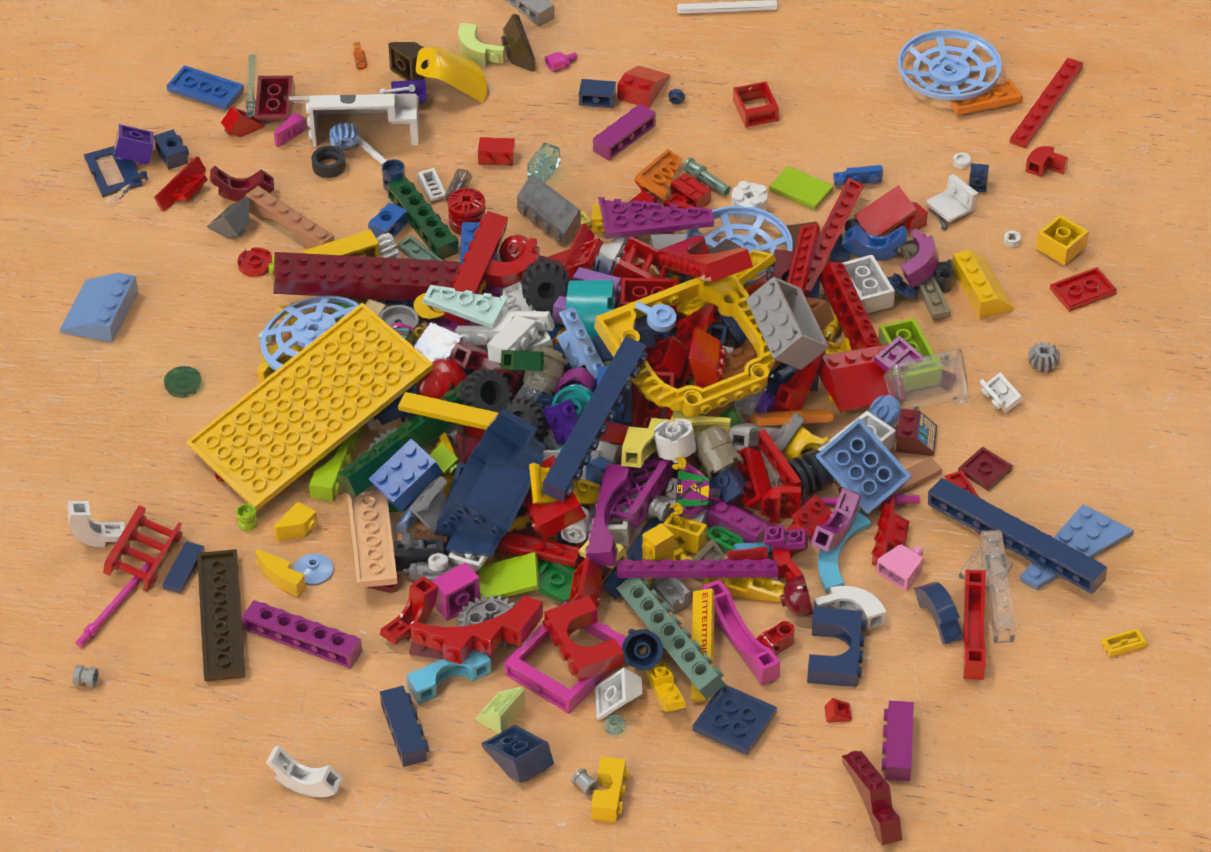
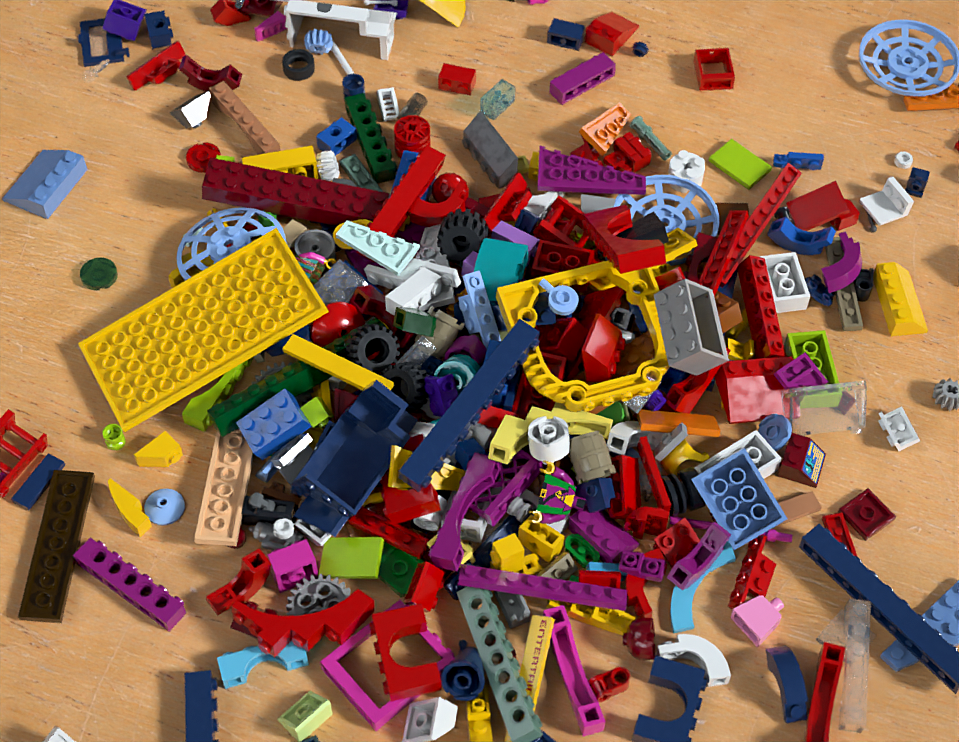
camera: 10 degrees right, 10 degrees up
(839, 253) = (764, 242): dark blue tile -> none
(1013, 235) = (940, 249): white bush -> none

